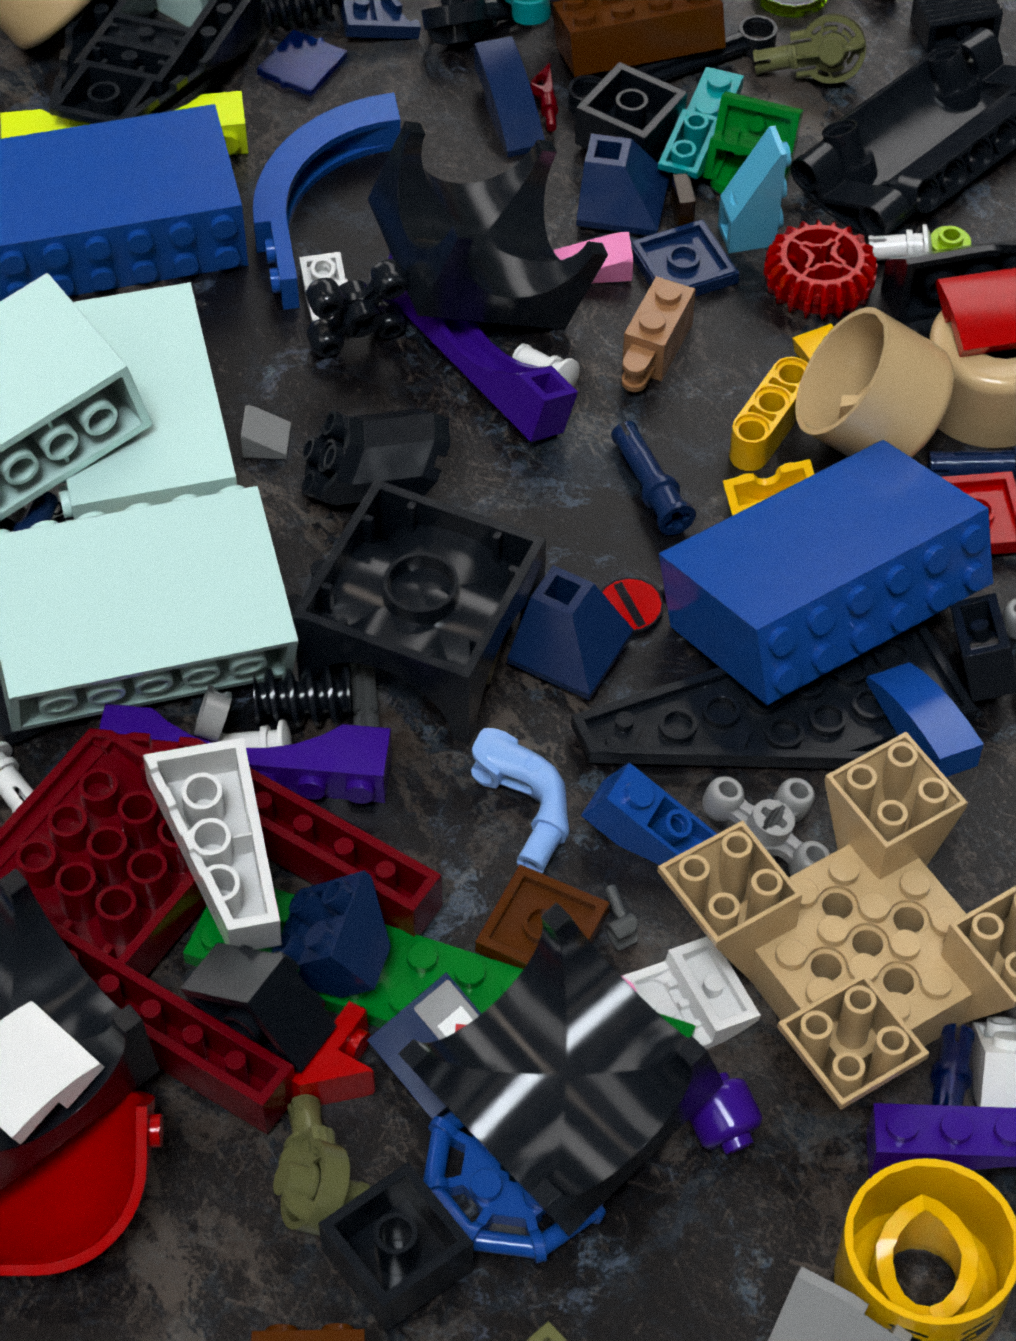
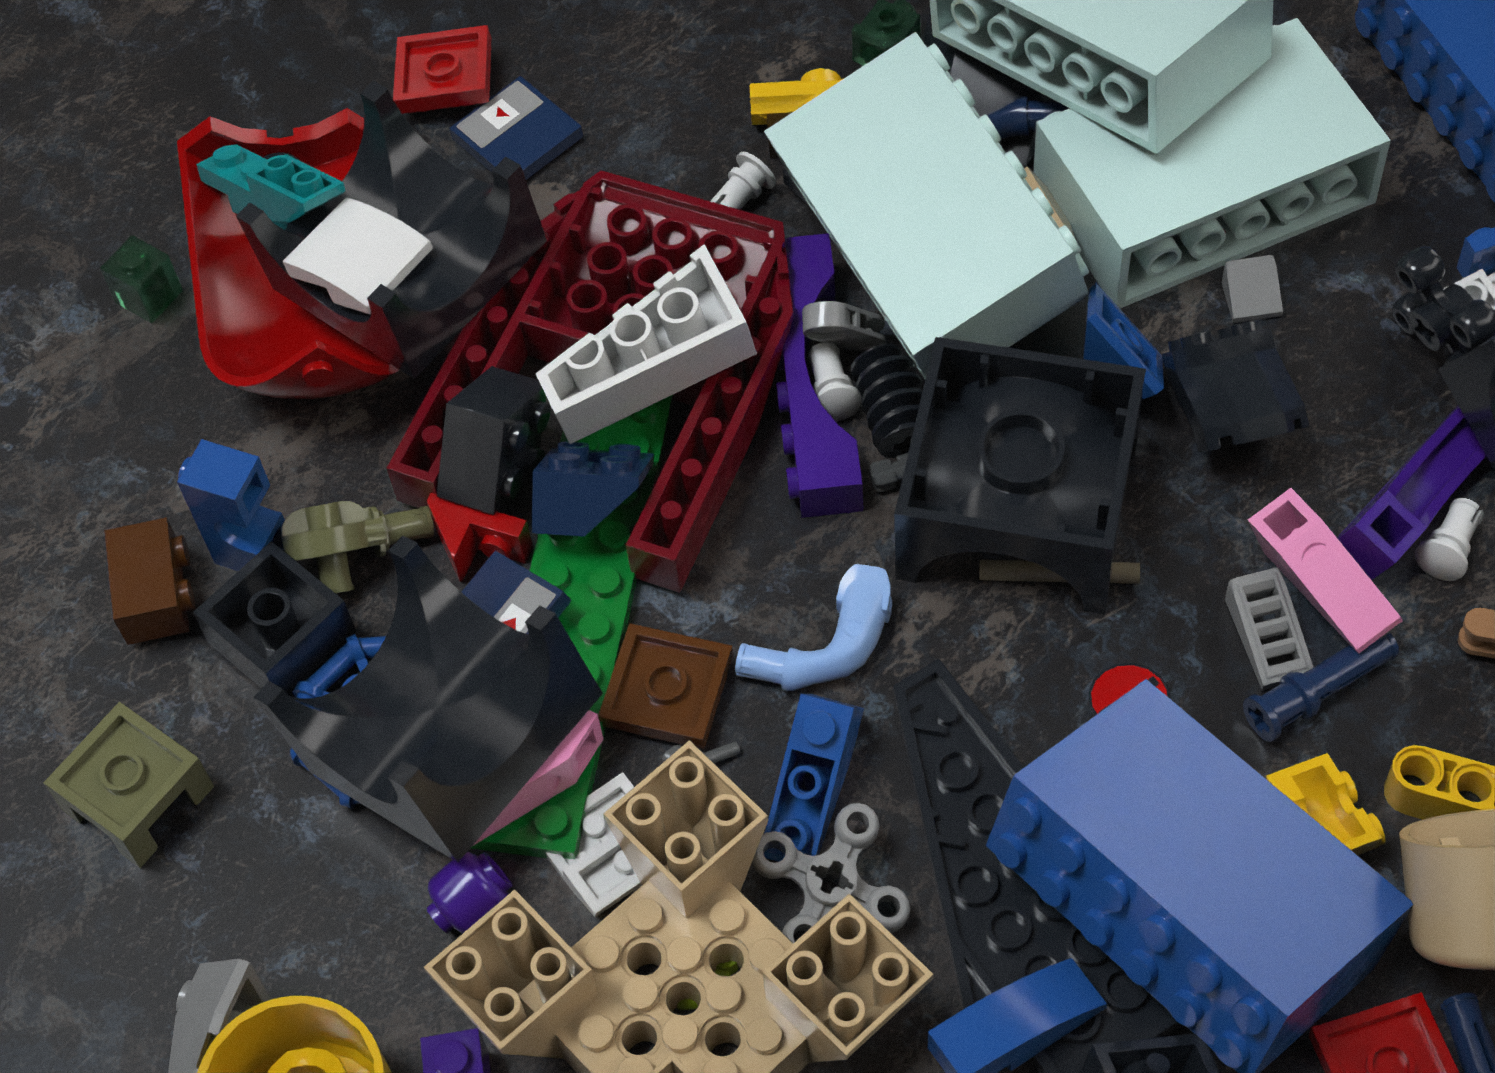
camera: 85 degrees right, 5 degrees up
(271, 1250) = (225, 500): none -> blue arch
(309, 527) = (1116, 340): none -> blue slope
(564, 442) = (1323, 570): none -> bright pink slope
(569, 634) = (1049, 636): dark blue slope -> none
(570, 508) = (1259, 596): none -> light grey slope

